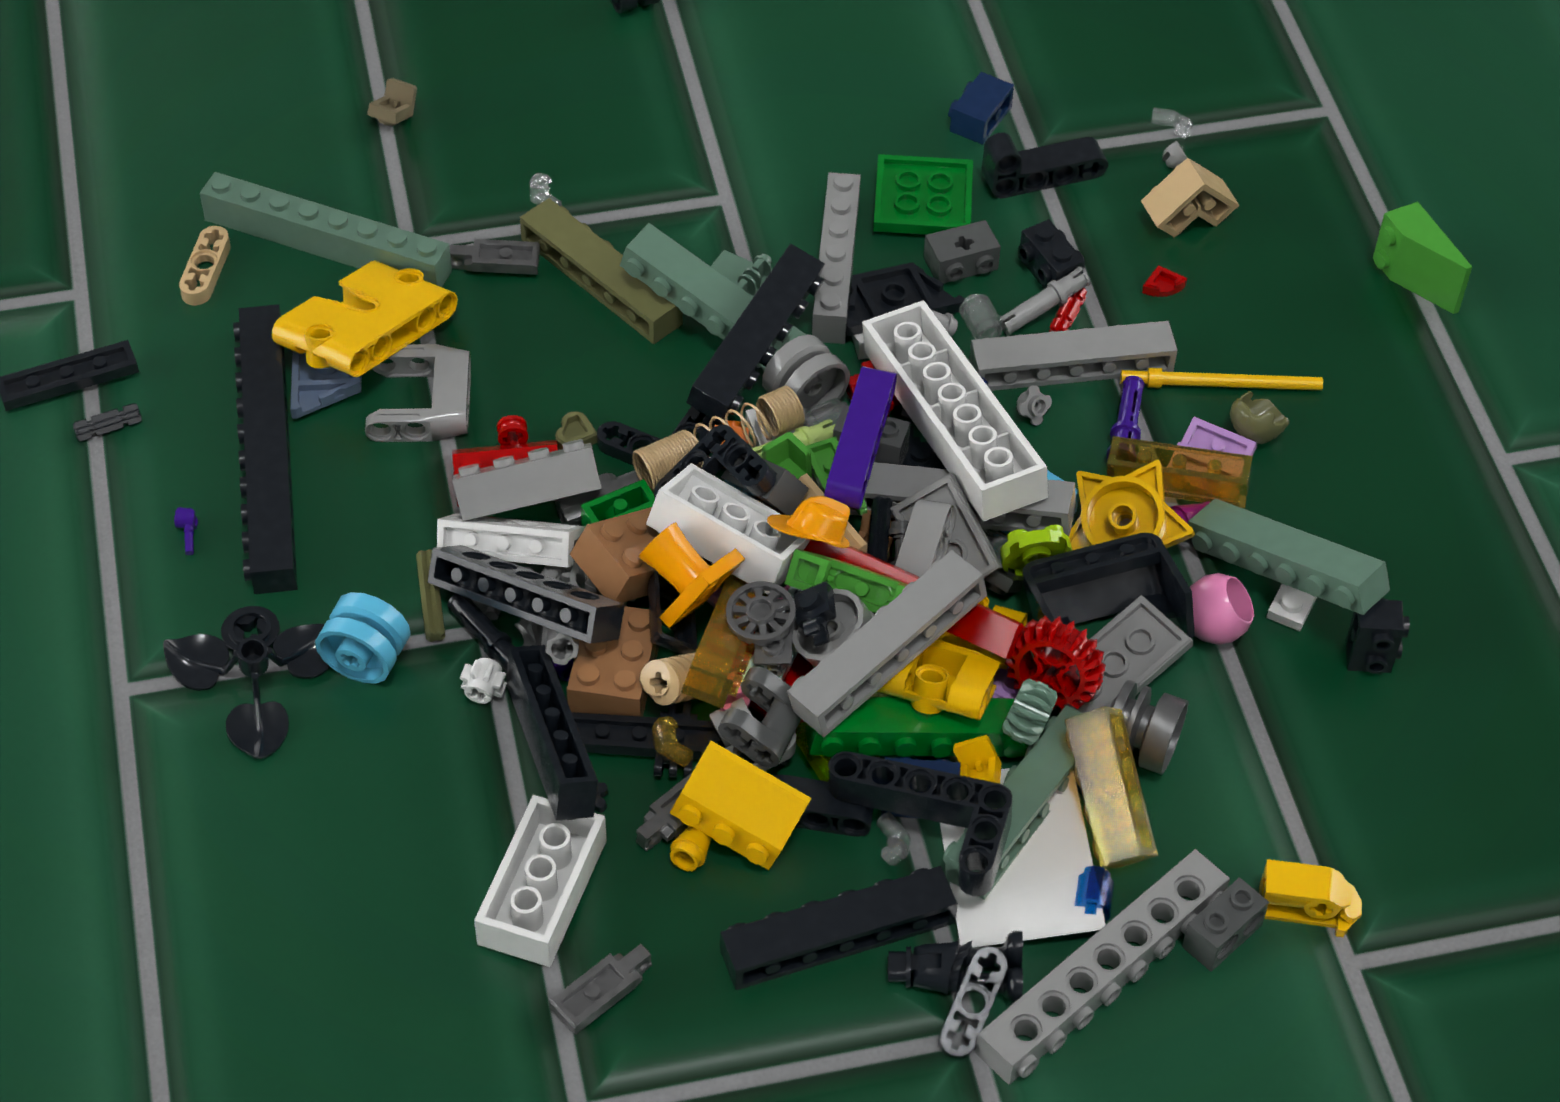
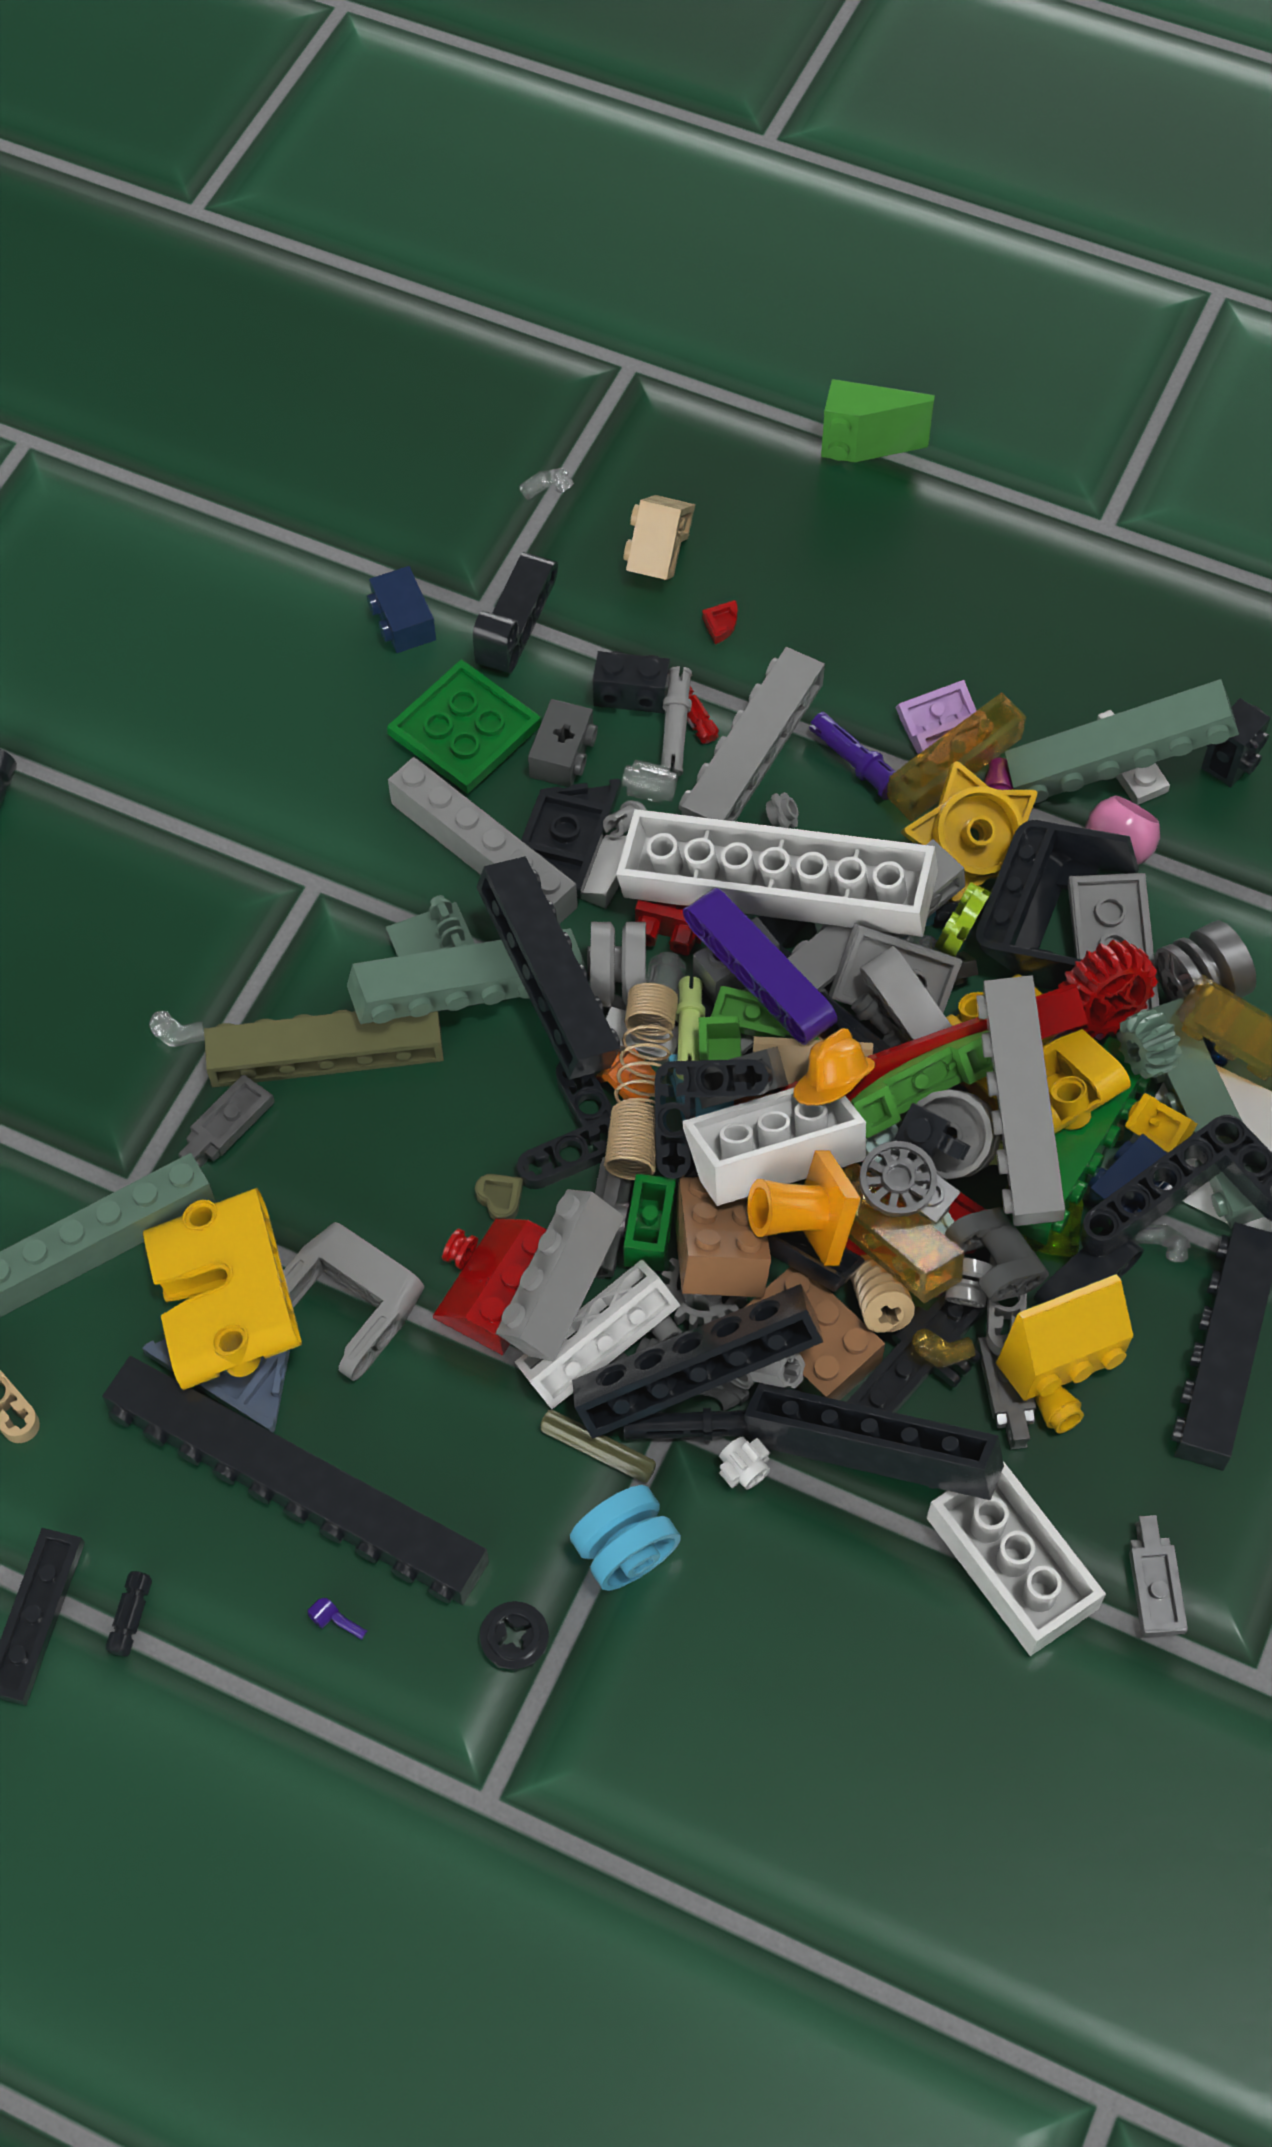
camera: 50 degrees left, 10 degrees up
(257, 727) = (636, 1698): black plant -> none
(1156, 378) = (826, 699): yellow bar -> none
(1174, 155) = (589, 506): light grey hinge -> none
(1257, 419) = (939, 661): olive hair -> none

